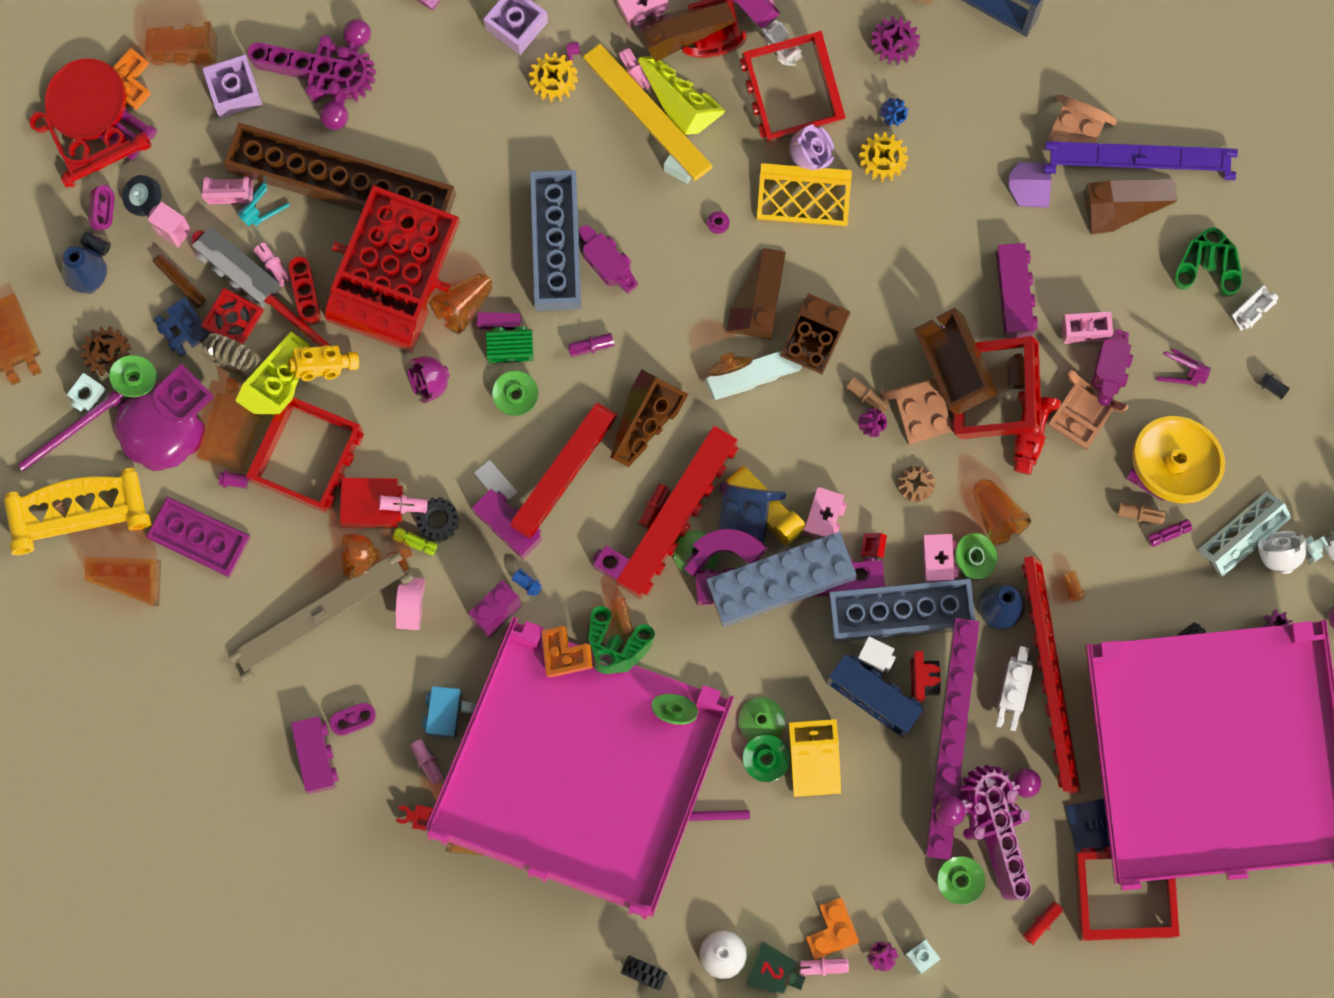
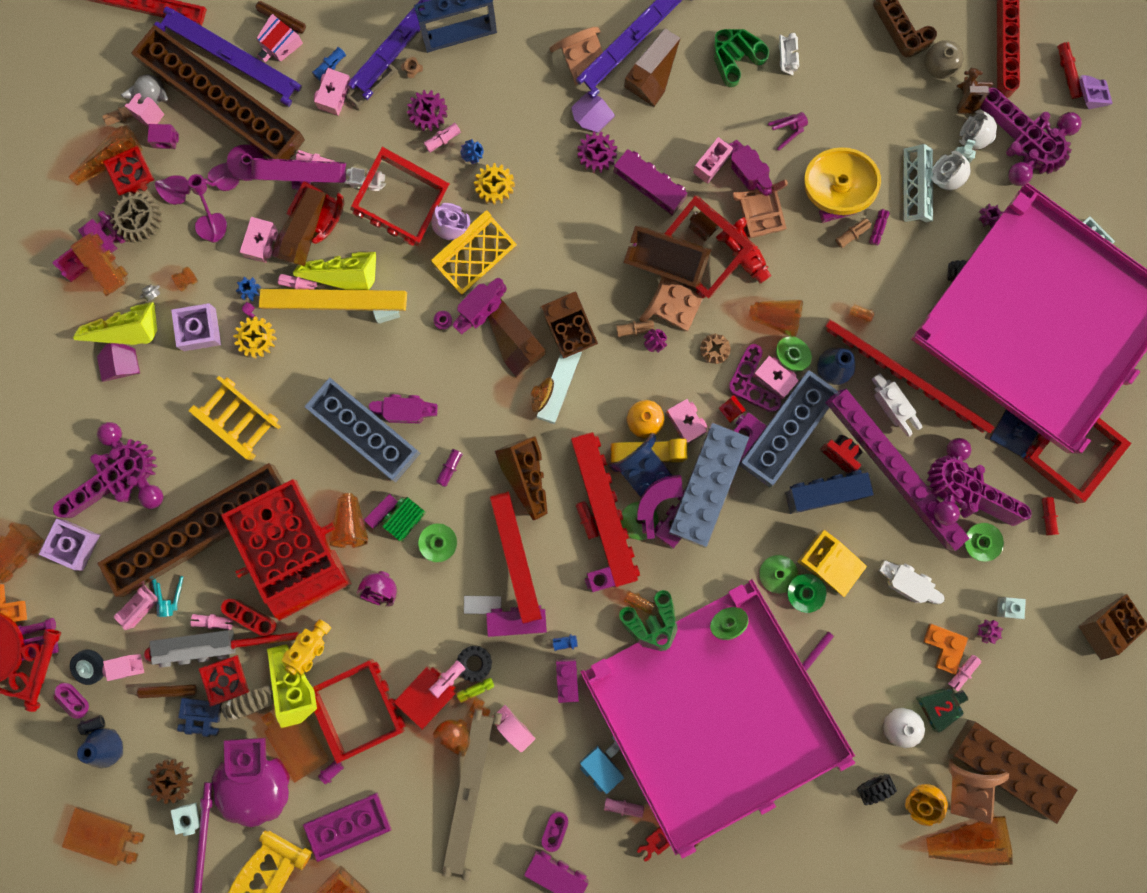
camera: 50 degrees left, 5 degrees up
(132, 367) = (197, 773): bright green dish -> none
(447, 115) = (217, 424): none -> yellow fence
(561, 658) = (634, 666): orange plate -> none
(591, 39) = (250, 284): none -> blue gear
(760, 241) = (479, 305): none -> magenta hinge
(794, 476) = (645, 418): none -> light orange cylinder
(860, 846) = (910, 584): none -> white hinge
(877, 656) = (805, 470): white brick -> none
(883, 75) = (442, 137): none -> bright pink pin
(907, 542) = (747, 386): none -> magenta beam
(994, 212) = (589, 150): none -> magenta gear
(1274, 385) = (844, 86): black pin -> none

